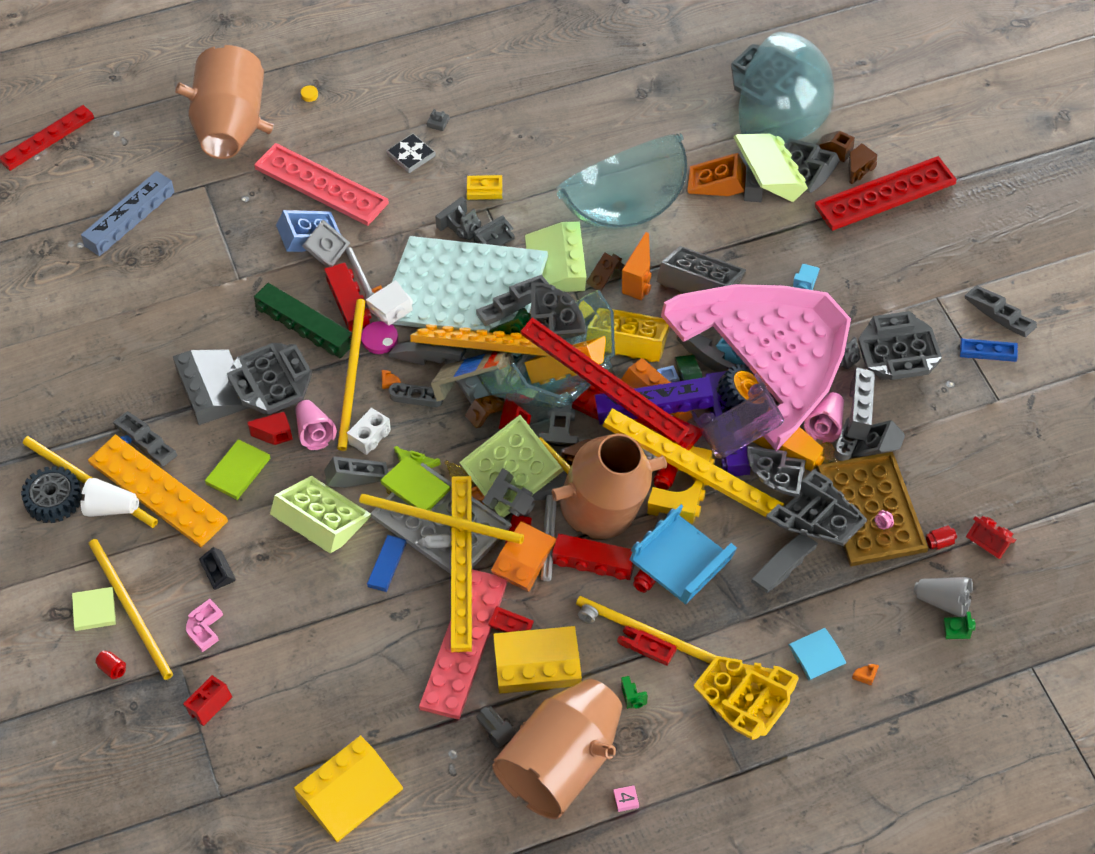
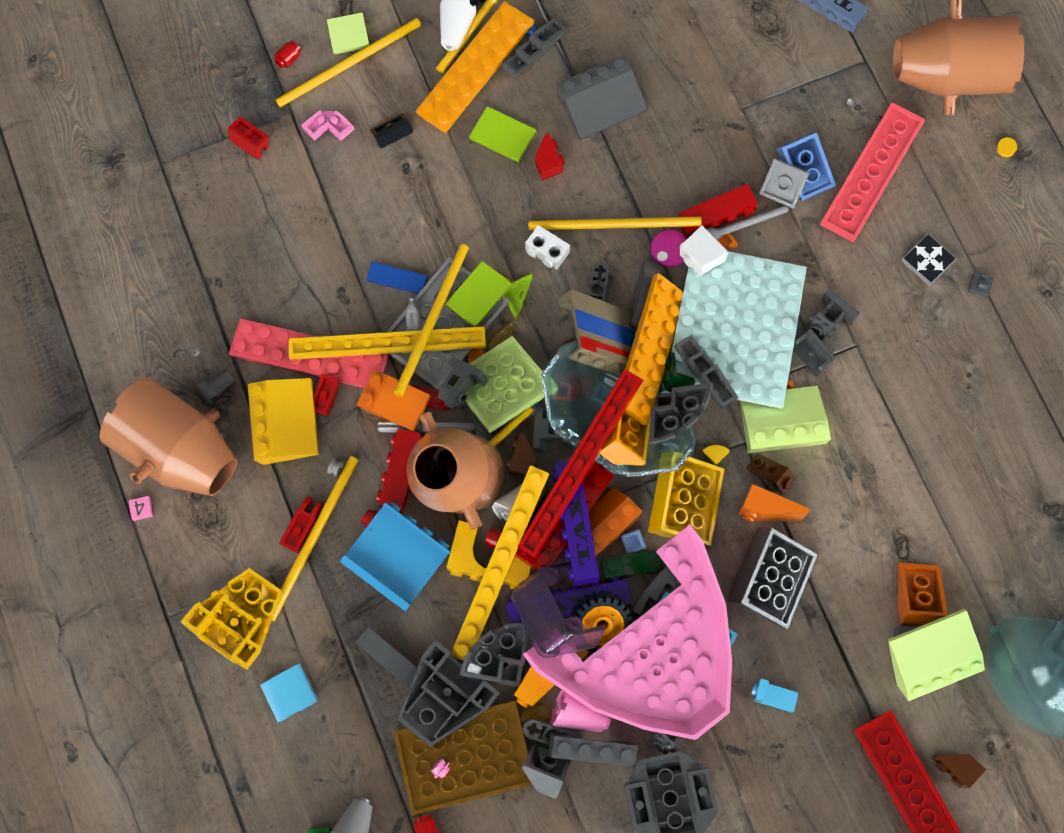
camera: 90 degrees right, 20 degrees up
(270, 377) = (598, 129): dark grey piece -> none
(303, 320) = (685, 172): dark green brick -> none
(314, 426) = (551, 193): bright pink cone -> none
(319, 513) = (450, 211): yellowish green slope -> none
(348, 788) = (157, 264): yellow slope -> none
(353, 472) = (497, 241): dark grey slope -> none
(389, 379) = (616, 263): orange tile -> none
(484, 187) = (883, 339): yellow plate -> none
(628, 185) = (877, 482): clear light blue windscreen -> none
(630, 694) = (247, 507): green bracket -> none
(812, 162) = (952, 706): dark grey brick -> none
(837, 142) = (984, 737): reddish brown slope -> none
(866, 674) = (268, 742): orange tile -> none

